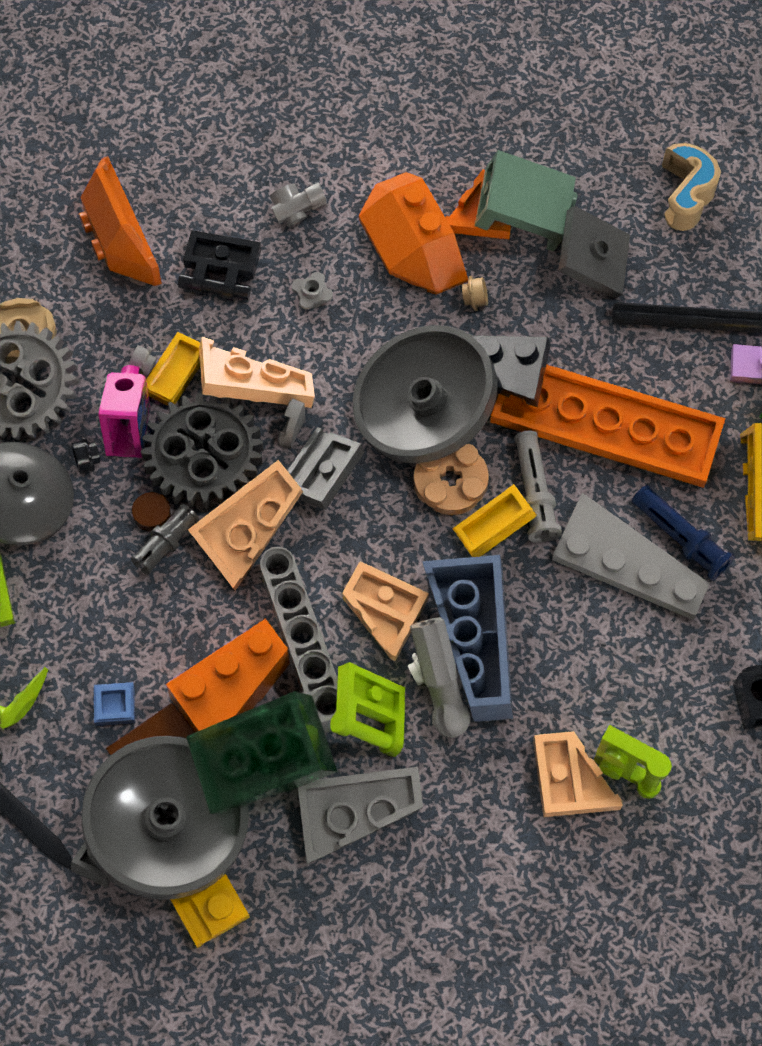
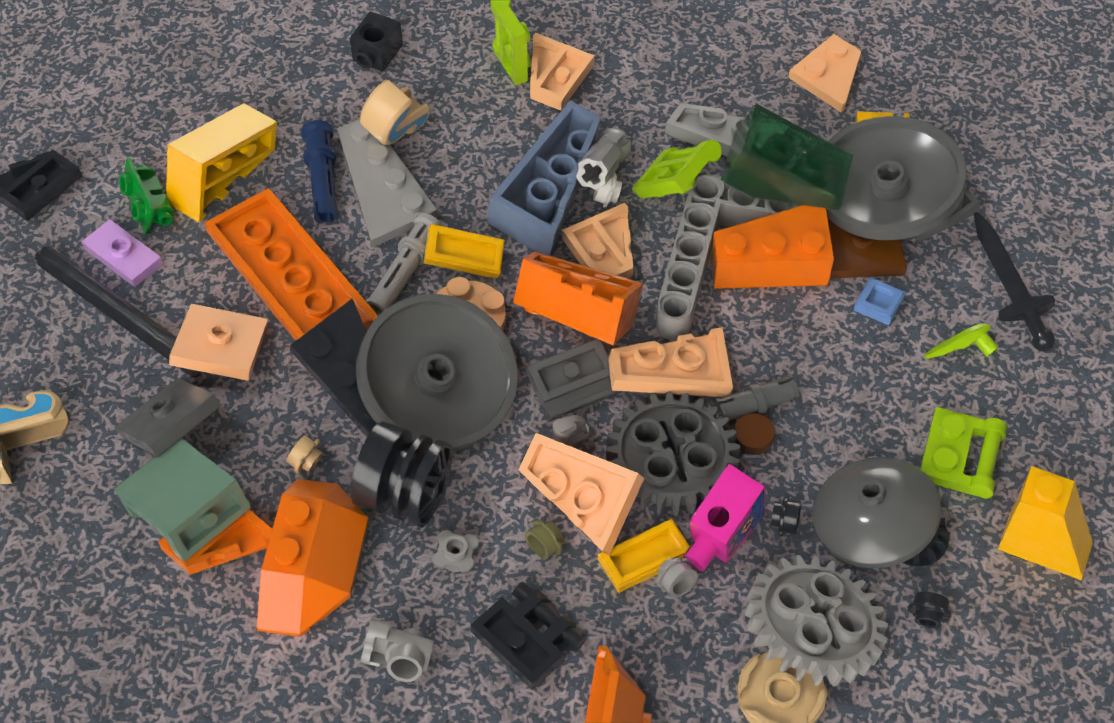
camera: 145 degrees left, 10 degrees down
(254, 334) = (544, 535): none -> olive plate
(308, 961) = (828, 71): none -> light nougat wing
(360, 524) = (578, 296): none -> orange wedge
(384, 298) = (401, 474): none -> black wheel
(615, 330) = (218, 342): none -> light nougat plate
(662, 609) = (392, 113): none -> tan animal

